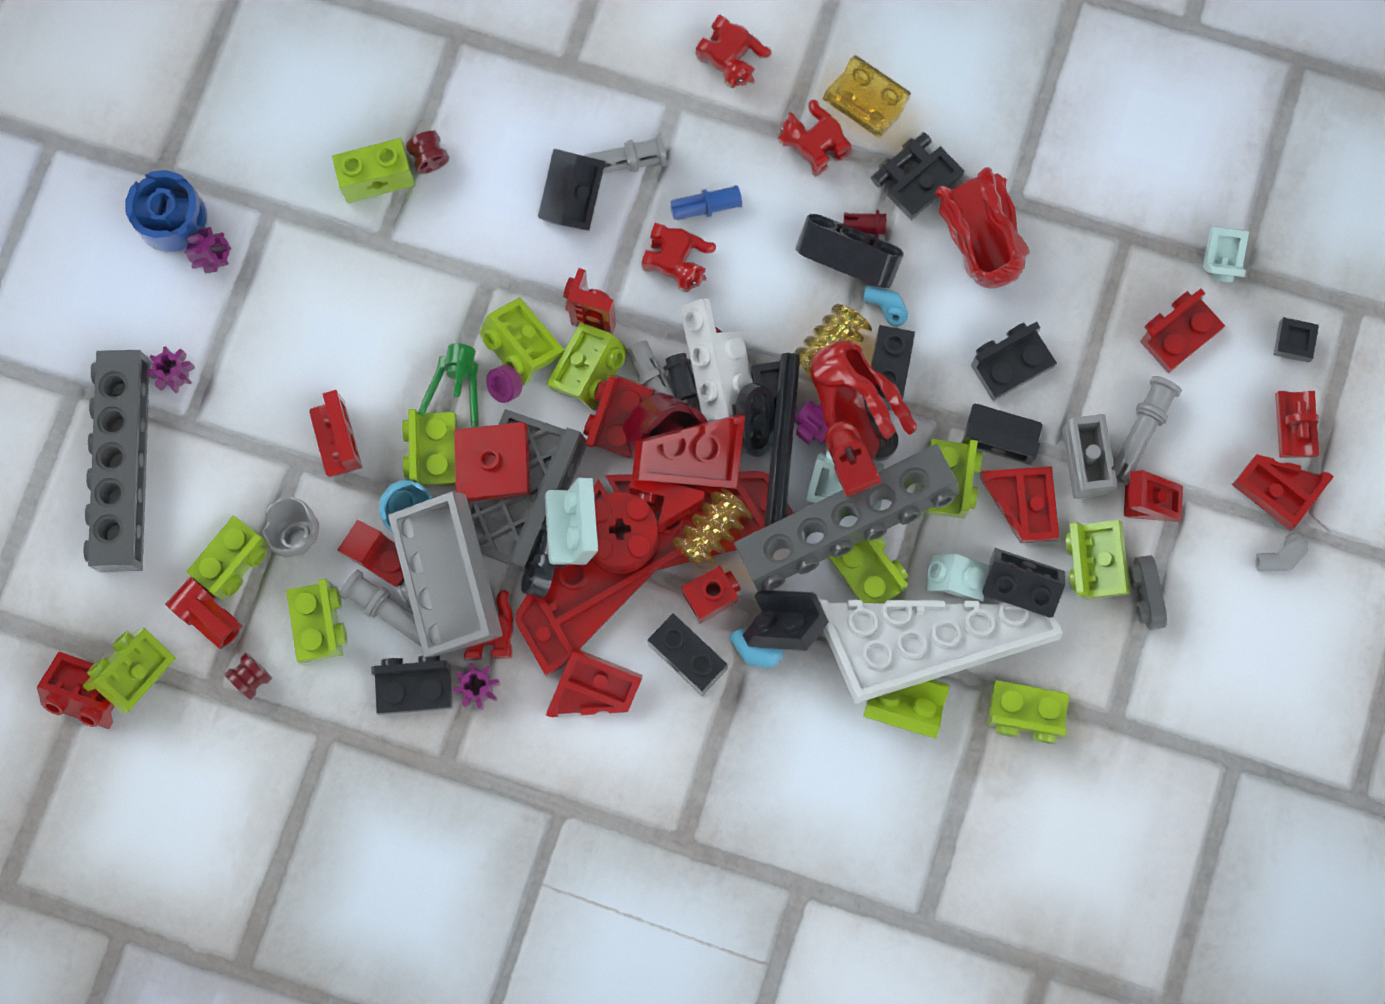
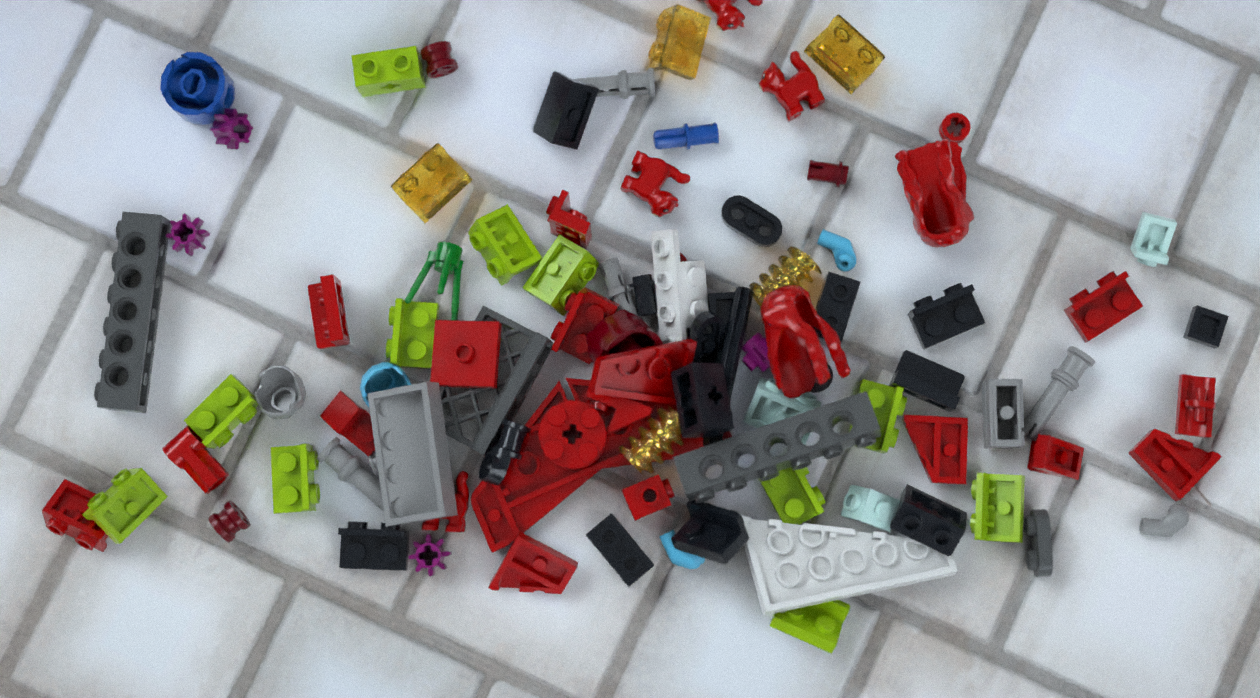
camera: 10 degrees right, 5 degrees up
(432, 283) = (431, 183): none -> clear yellow bracket
(504, 383) = (484, 283): magenta tile -> none
(571, 523) = (529, 425): light aqua bracket -> none
(686, 104) = (679, 41): none -> clear yellow bracket
(758, 475) = (702, 400): none -> black brick
(790, 283) = (753, 219): none -> black plate
(849, 251) = (810, 197): black beam -> none
(851, 459) = (786, 397): red piece -> none
(917, 189) = (883, 143): black plate -> none
(1001, 152) = (959, 119): none -> red bush
(1028, 710) = (918, 635): lime bracket -> none

